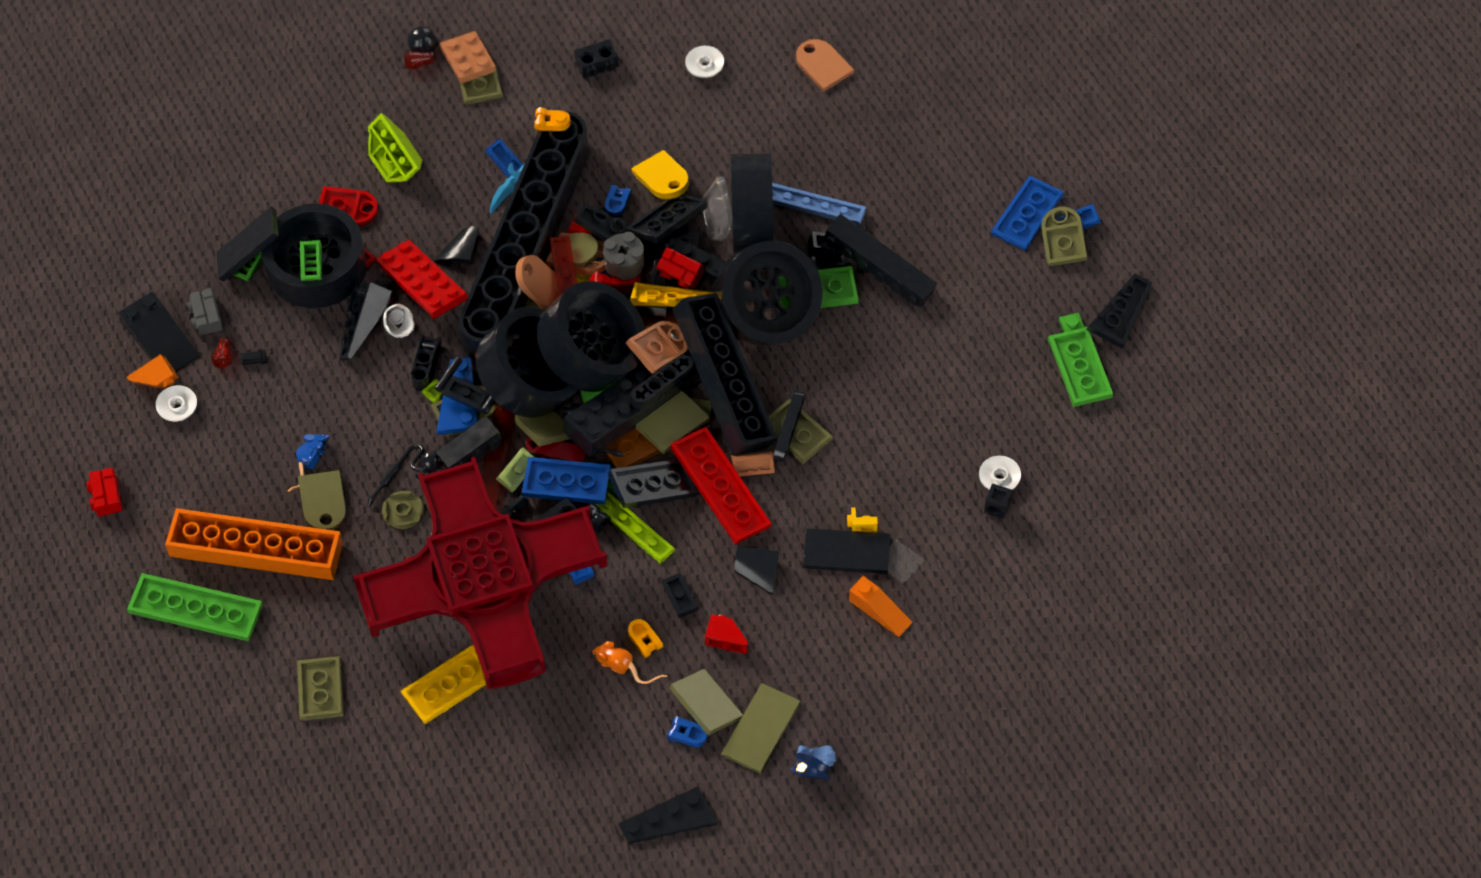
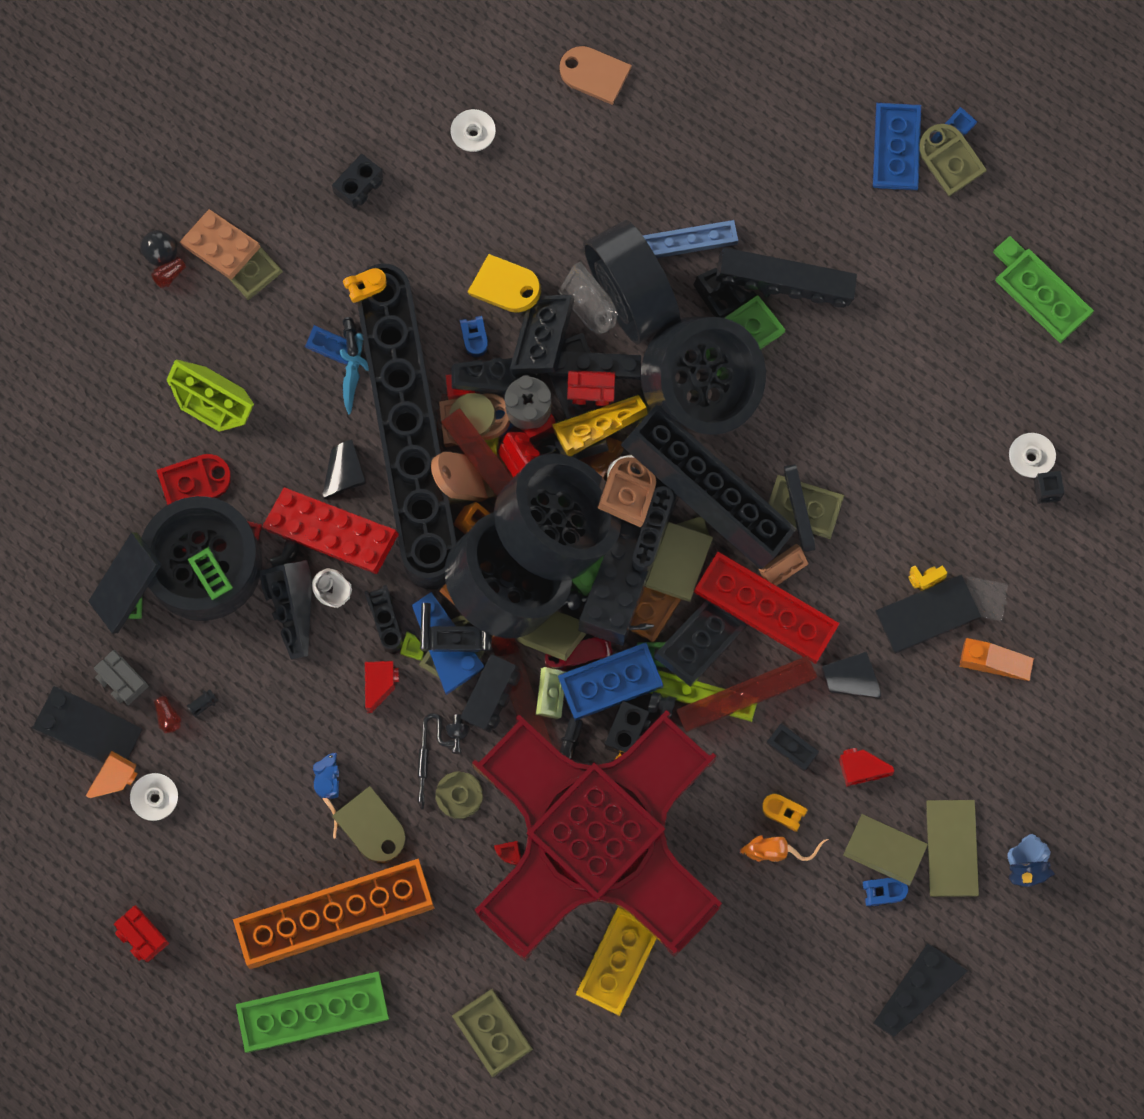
camera: 25 degrees left, 15 degrees up
(391, 403) = (379, 682): none -> red slope
(519, 163) = (350, 333): none -> black piece
(666, 538) = (746, 694): none -> clear red plate
(1120, 314) = (1052, 217): black wing -> none

